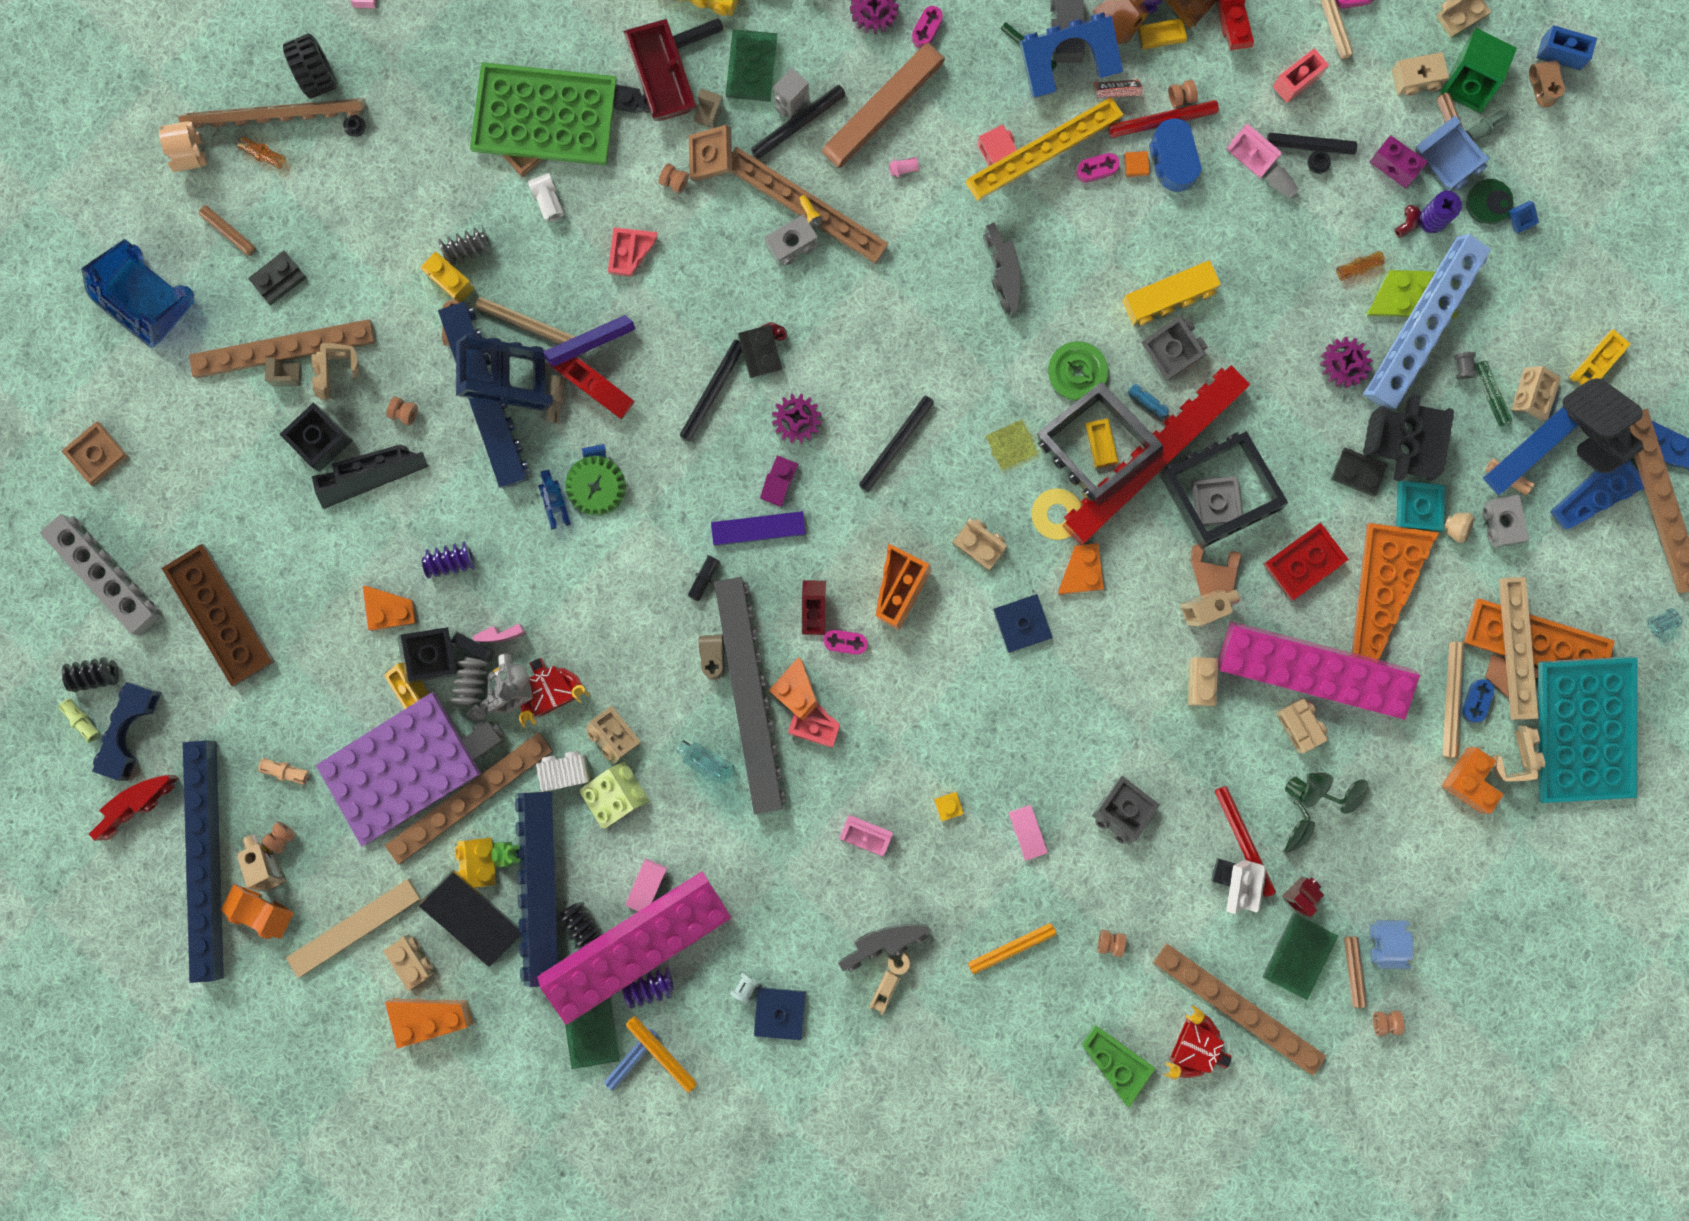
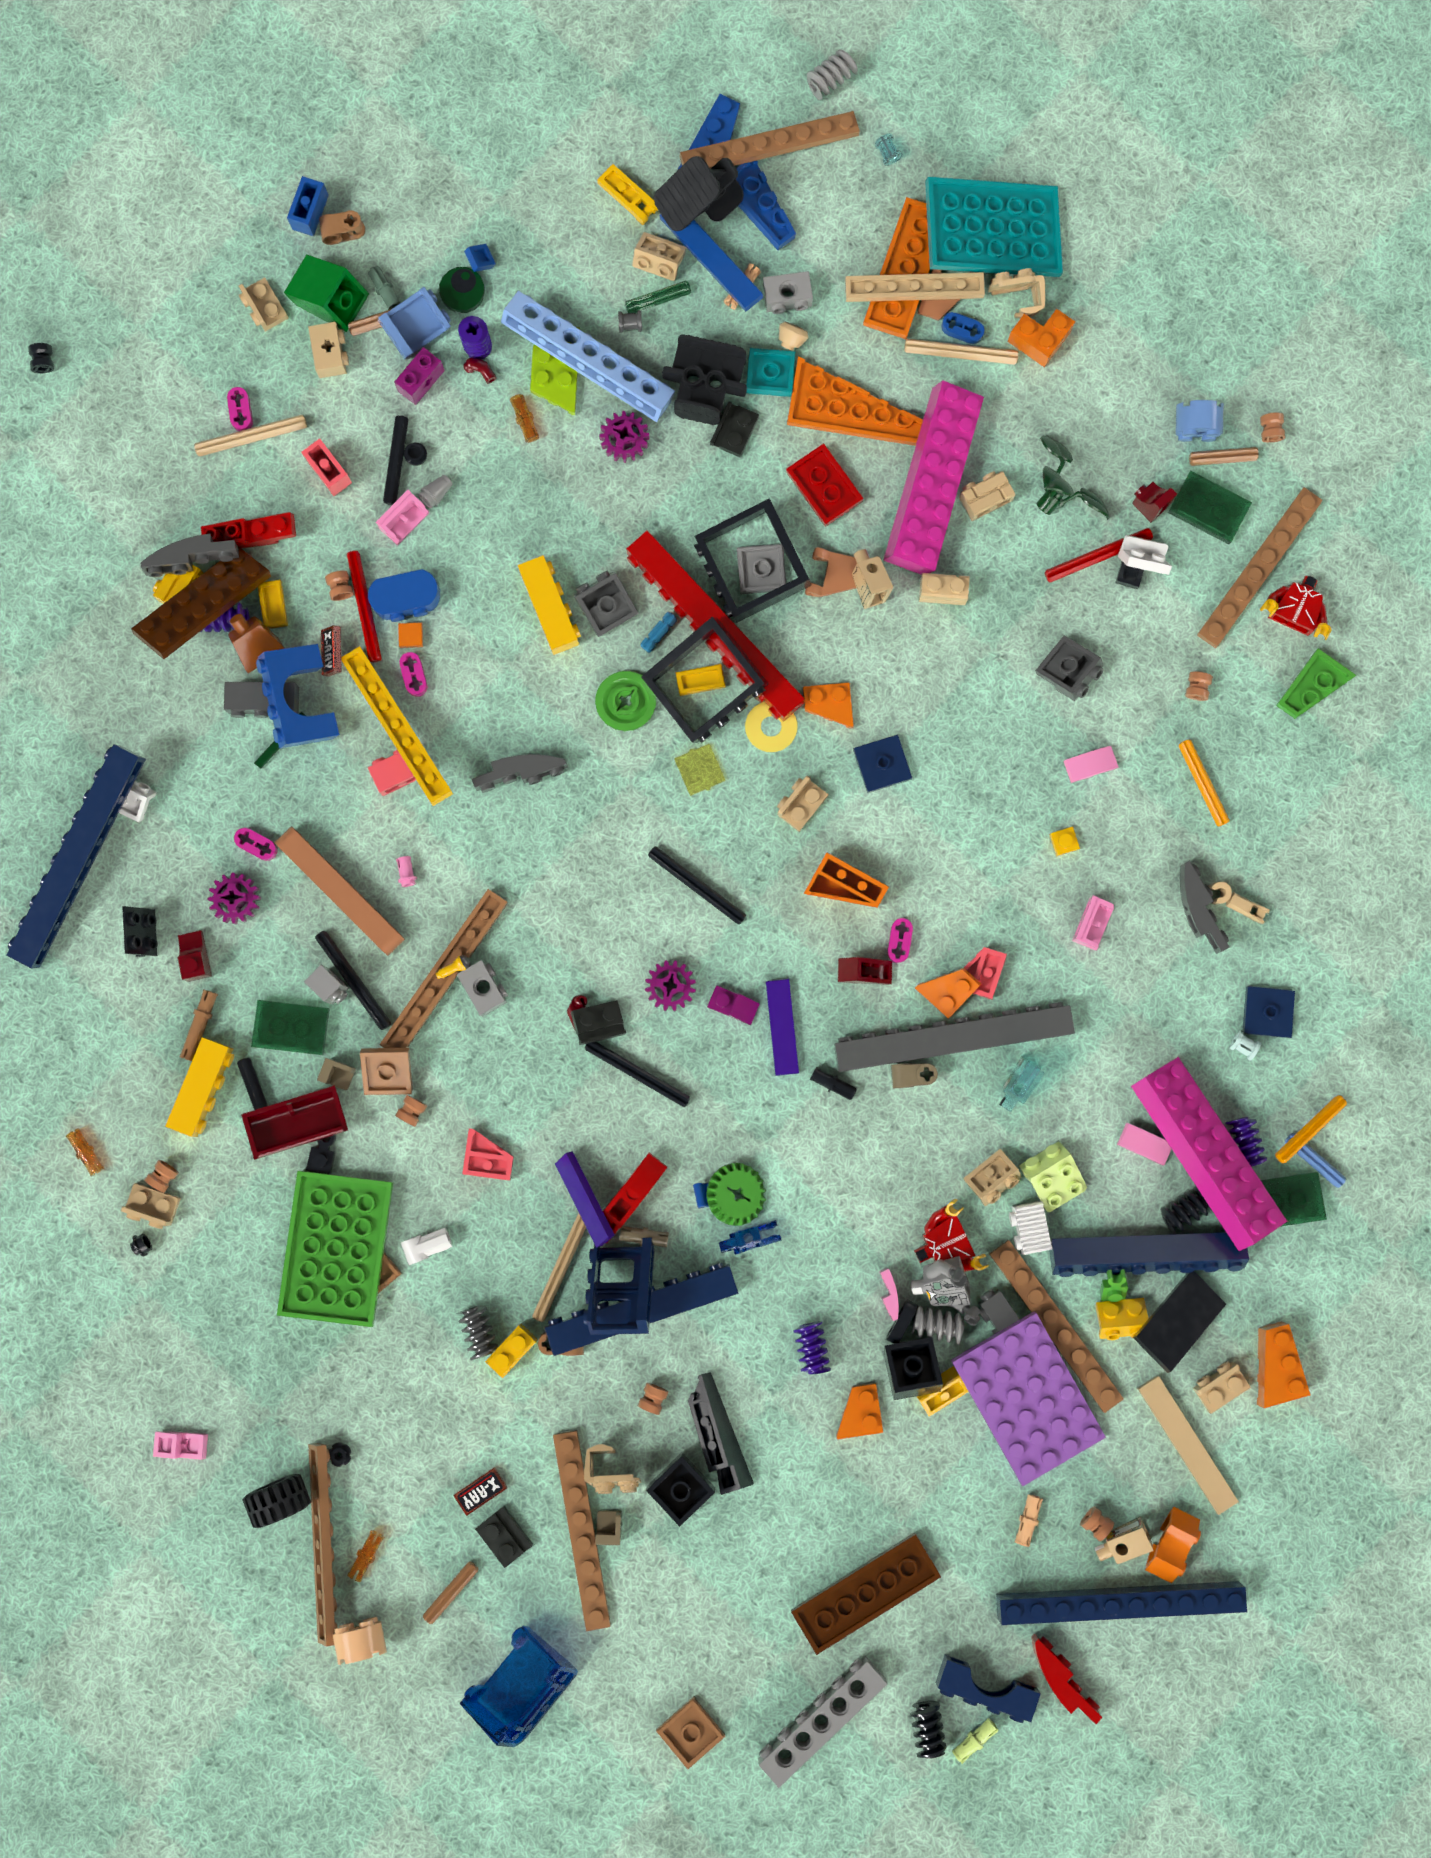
camera: 90 degrees left, 0 degrees up
(319, 255) = (480, 1491): none -> tile

